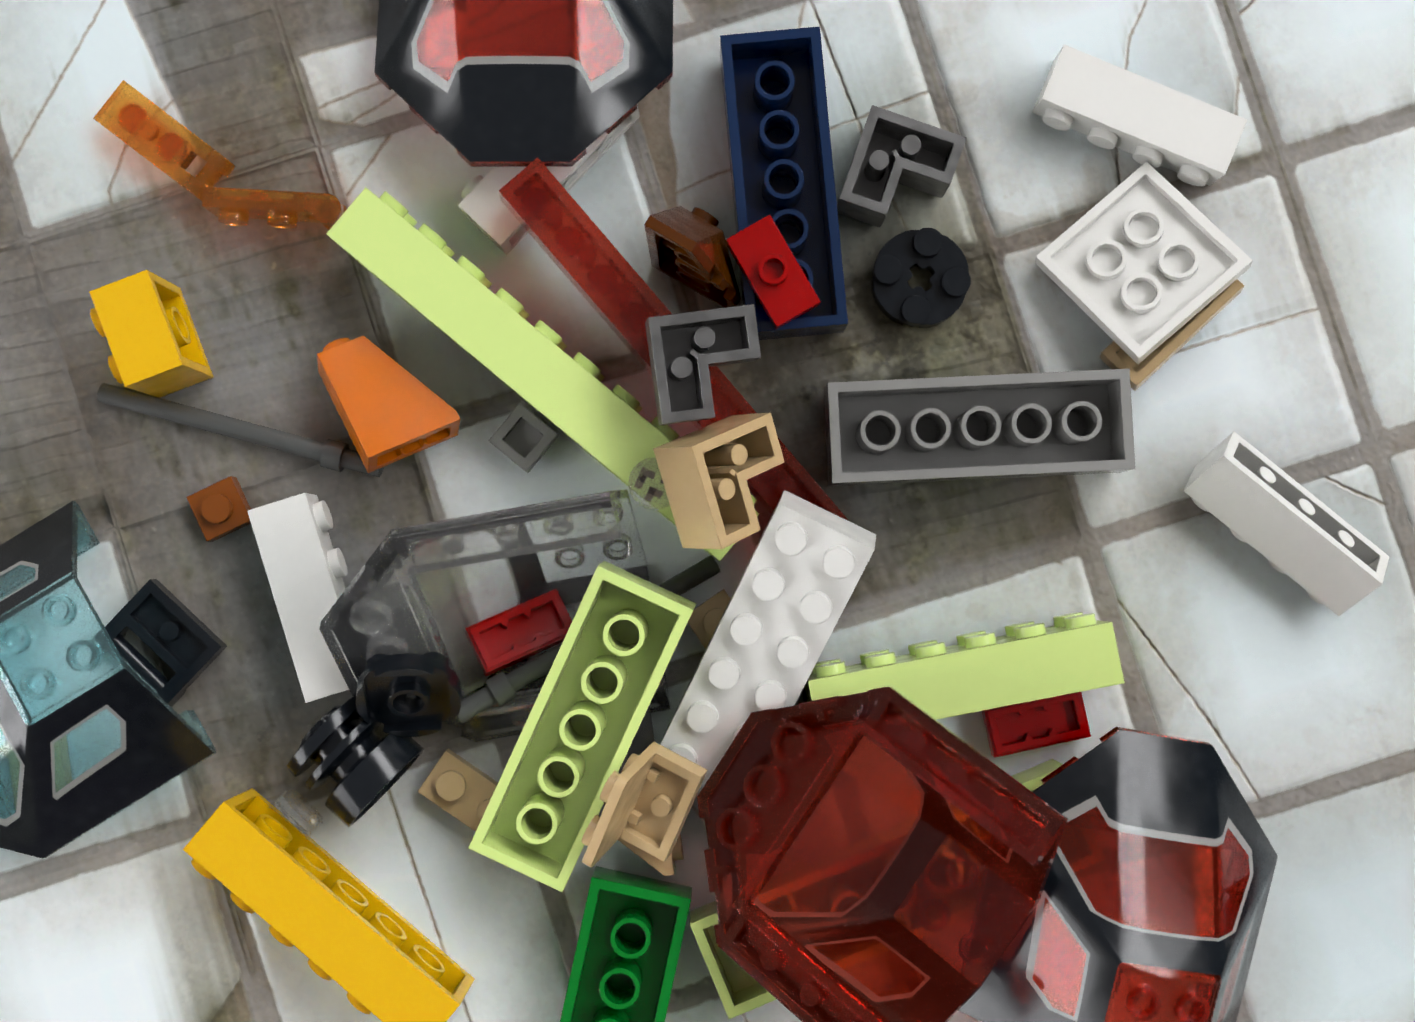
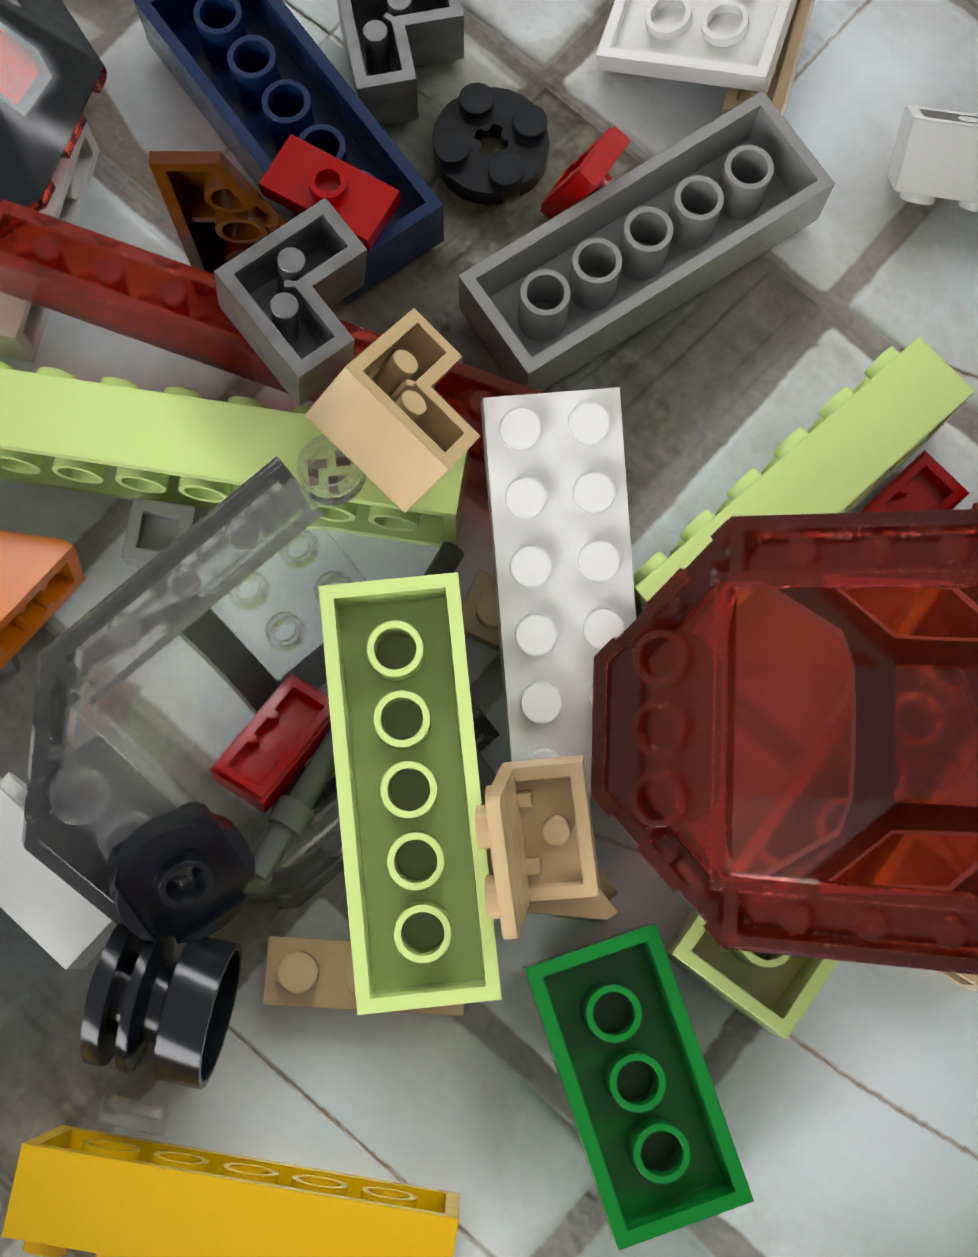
camera: 35 degrees left, 10 degrees down
(964, 353) = (586, 173): none -> red plate

